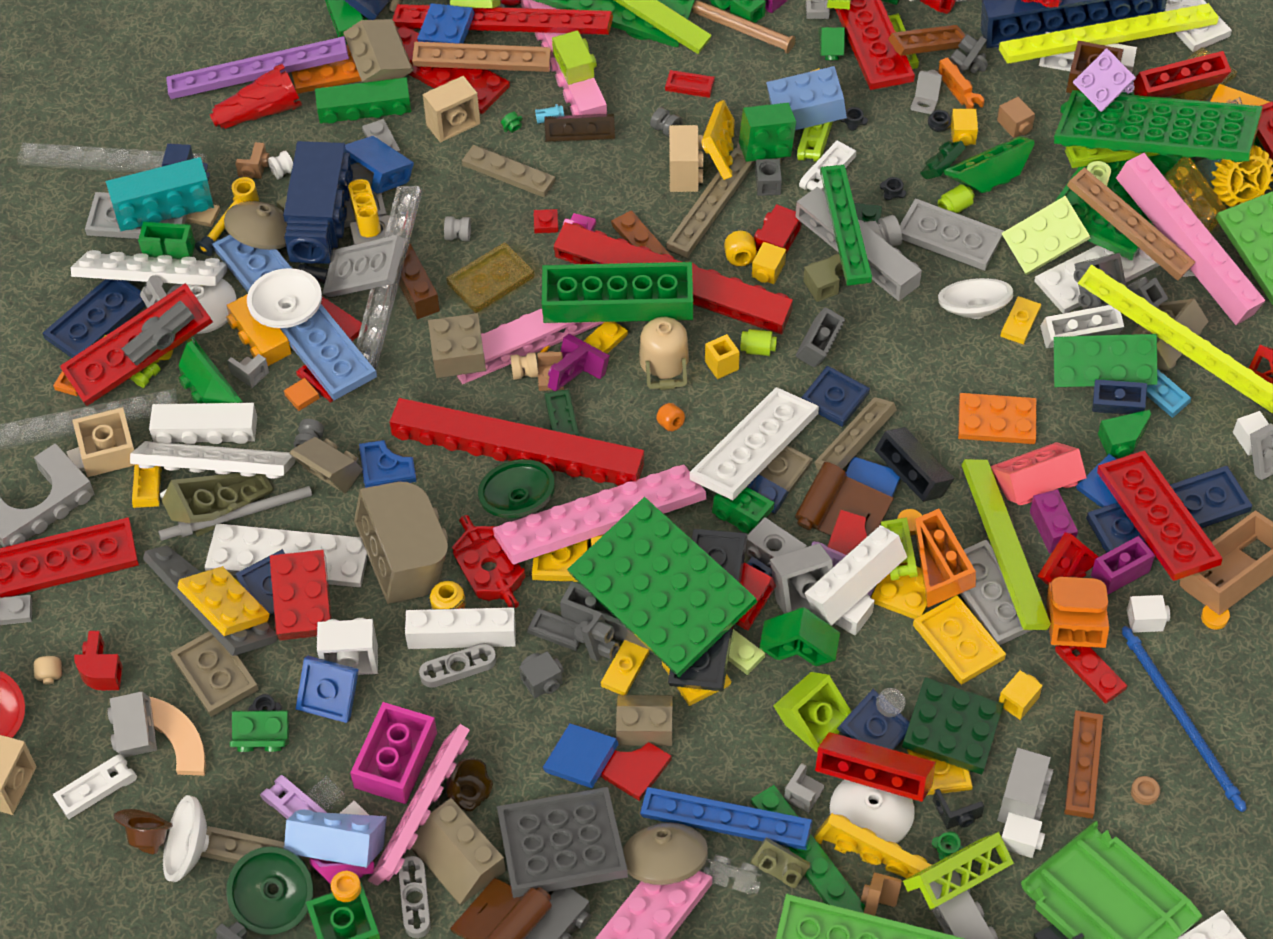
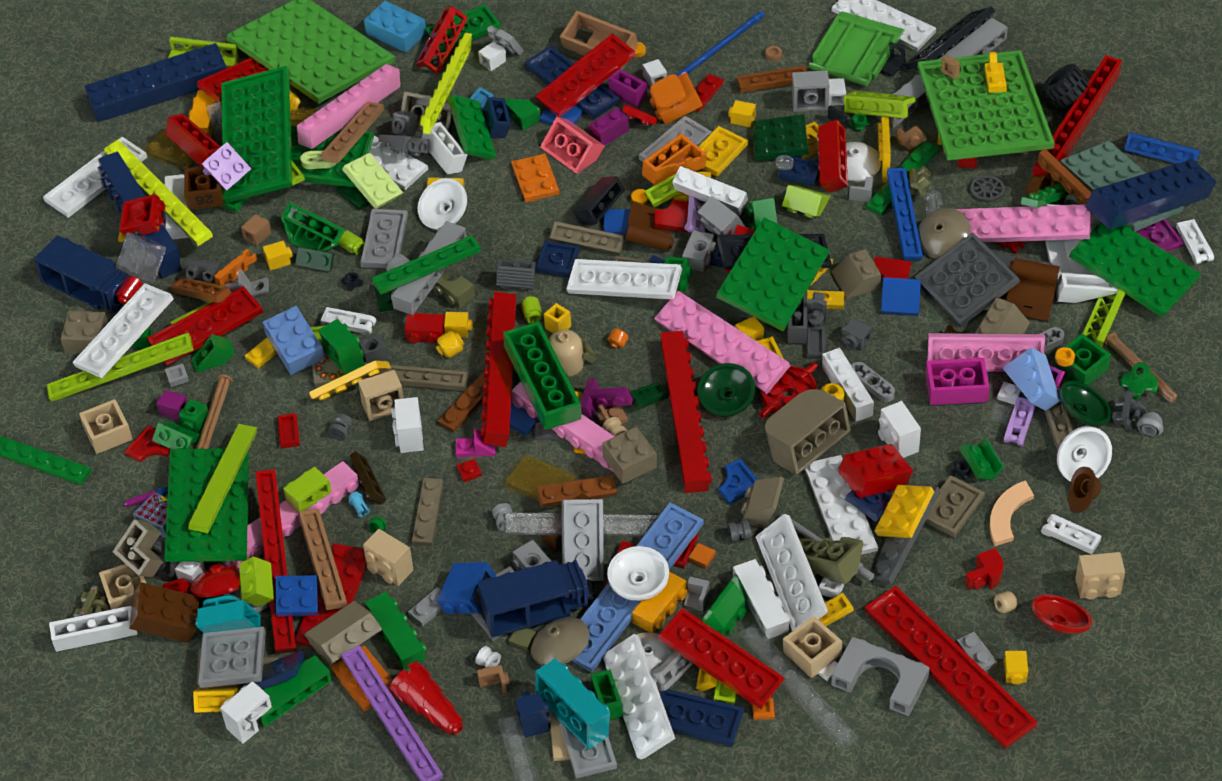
camera: 110 degrees left, 5 degrees down
(132, 724) = (1020, 525): light grey brick -> none
(158, 333) = (713, 632): dark grey piece -> none
(243, 190) = (532, 662): yellow piece -> none
(327, 689) = (934, 432): tile -> none
(364, 208) = (526, 555): yellow beam -> none
(453, 285) = (594, 488): none -> dark orange plate
(626, 171) = (407, 425): none -> white brick
(939, 121) = (273, 273): black plate -> none
(1006, 545) = (637, 144): lime tile -> none

